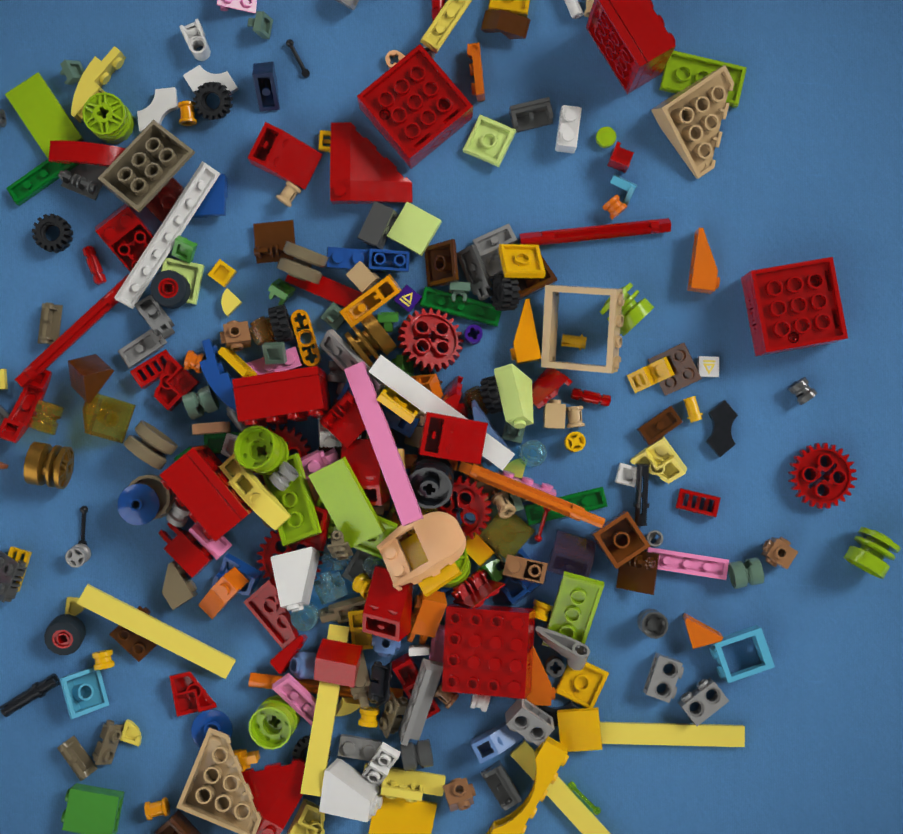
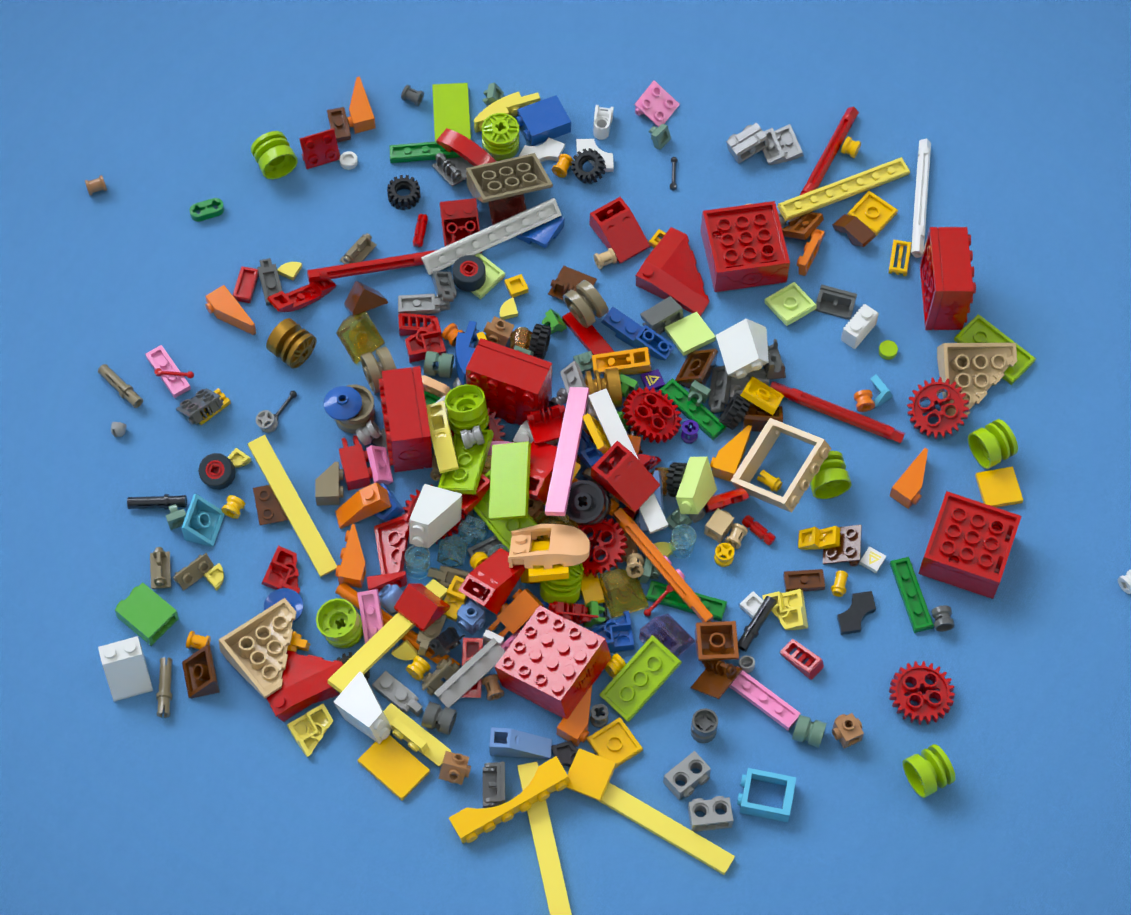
camera: 30 degrees right, 25 degrees down
(46, 417) = (311, 311): clear yellow wheel -> none
(56, 700) = (176, 517): none -> sand green tile
(138, 73) = (543, 120): none -> blue brick
(184, 249) = (498, 253): bright green tile -> none
(248, 650) = (353, 566): none -> orange slope
(266, 86) = (636, 178): dark blue slope -> none
(296, 325) = (557, 360): light orange beam -> none
(338, 548) = (482, 511): dark tan hinge -> none
(362, 277) = (625, 340): tan panel -> none
(380, 764) = (406, 705): white slope -> none
(455, 48) = (803, 225): none -> dark orange wing
(479, 223) = (743, 348): none -> white slope
(480, 701) = (520, 707): white wheel -> none
(507, 214) = (775, 368): none -> dark grey hinge
(525, 569) = (619, 617): medium nougat slope -> none
(532, 718) = (555, 736): light grey brick -> none
(568, 44) = (898, 270): none -> yellow tile
(573, 650) = (619, 703): light grey piece -> none
(596, 810) = (563, 854): clear neon green hinge -> none
(620, 158) = (889, 368): red panel -> none
(673, 164) = (931, 392): none -> red gear
(700, 633) = (740, 756): orange slope -> none
(758, 186) = (992, 443): none -> lime wheel
(760, 381) = (911, 594): none -> green tile
(782, 225) = (999, 487): none -> yellow tile

